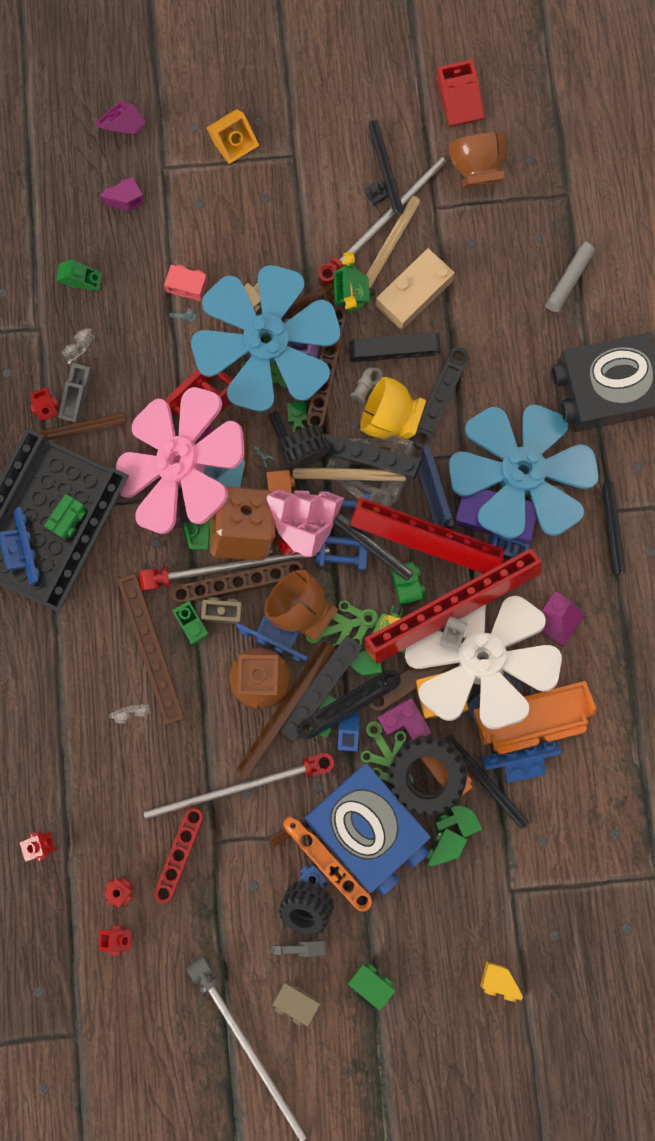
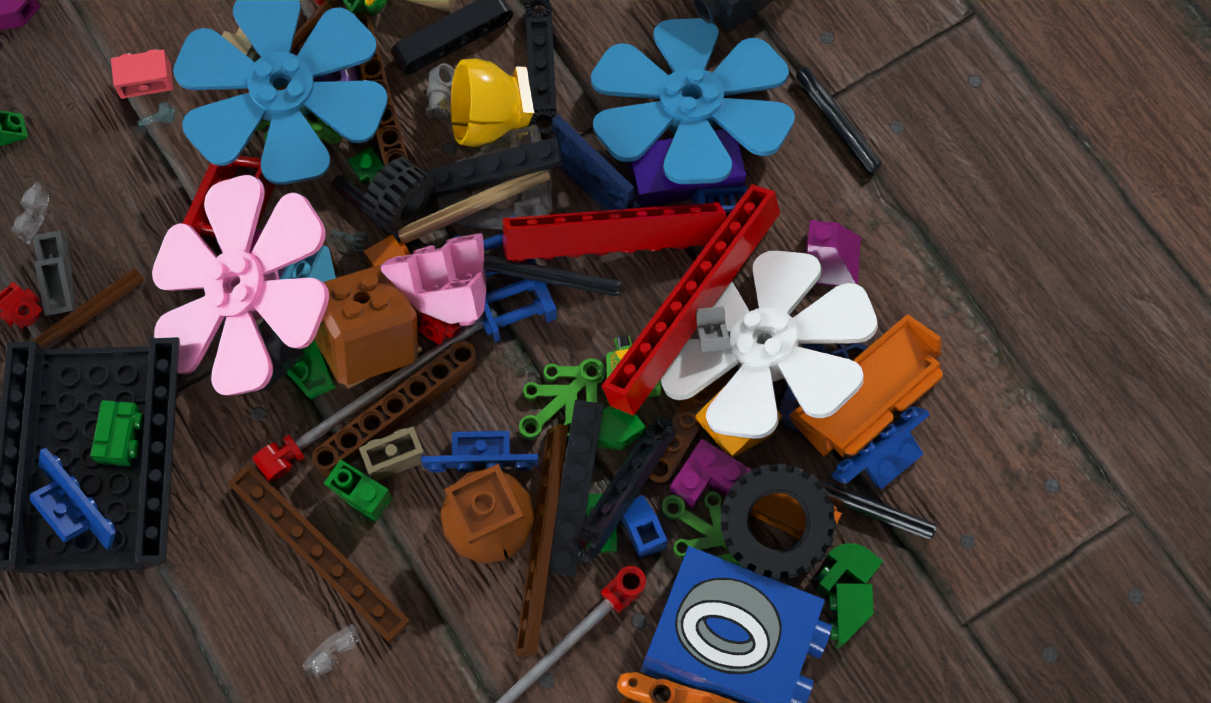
camera: 30 degrees left, 10 degrees down
(299, 605) = (494, 391): dark orange plate -> none
(410, 590) = (623, 311): green brick -> none

